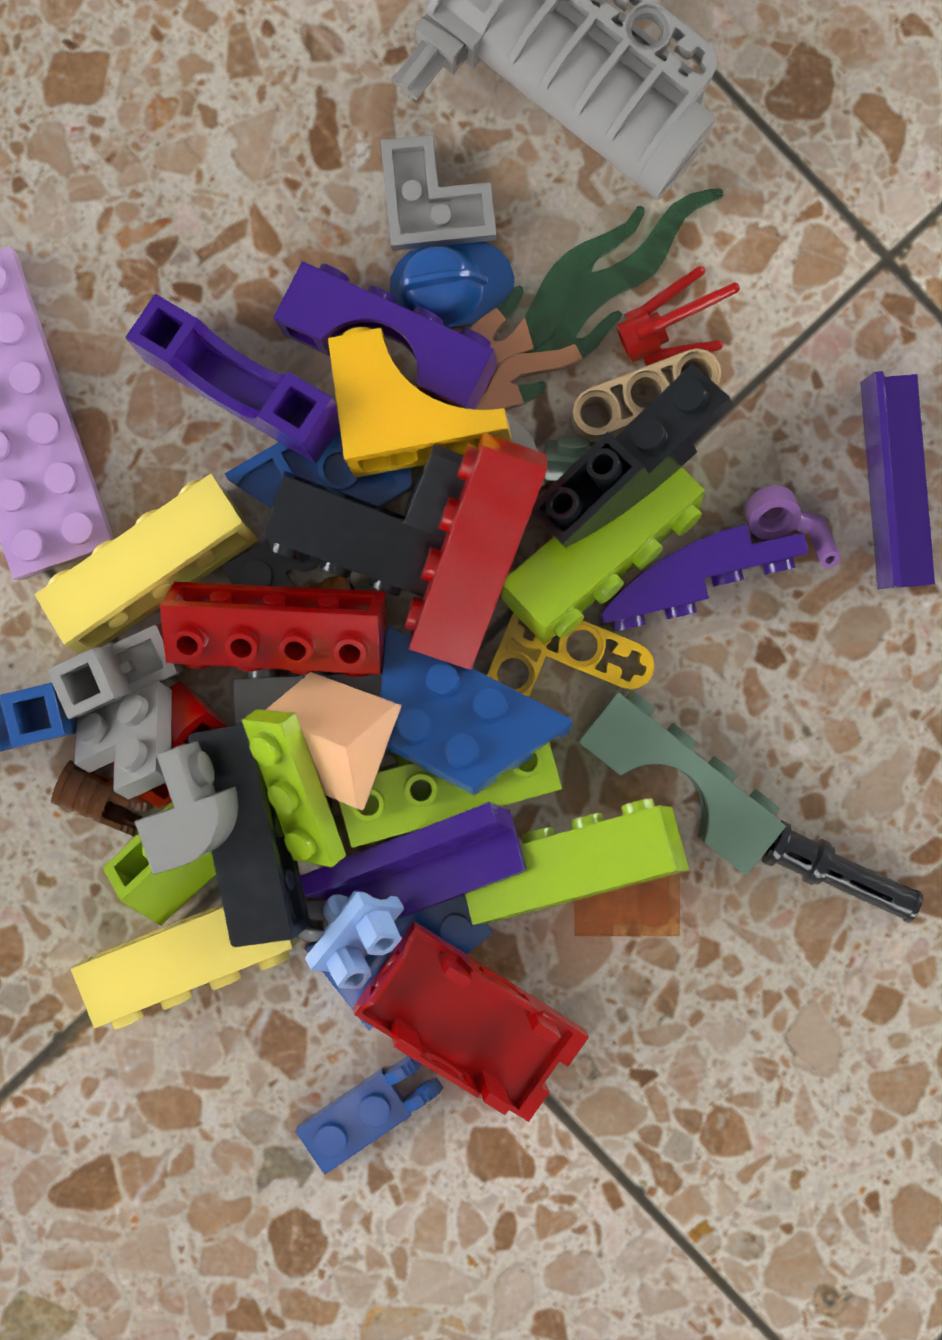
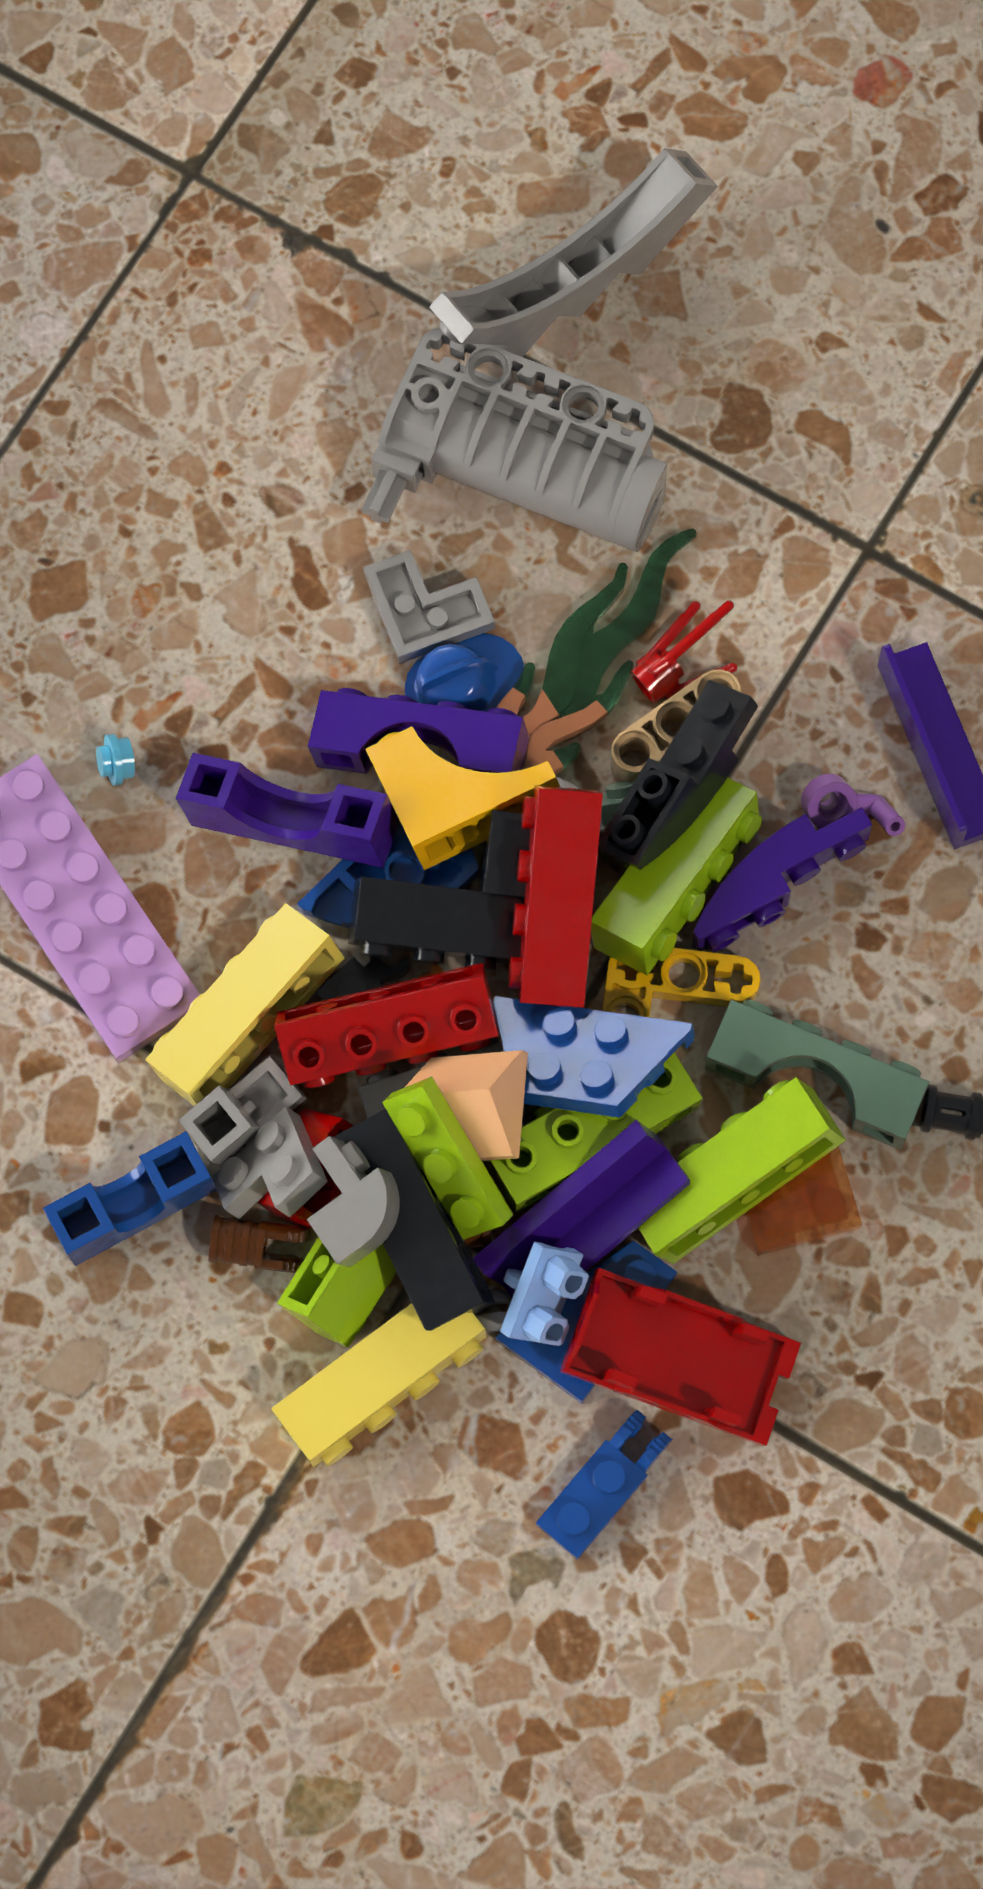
camera: 10 degrees left, 15 degrees down
(85, 274) = (115, 759): none -> medium azure plate

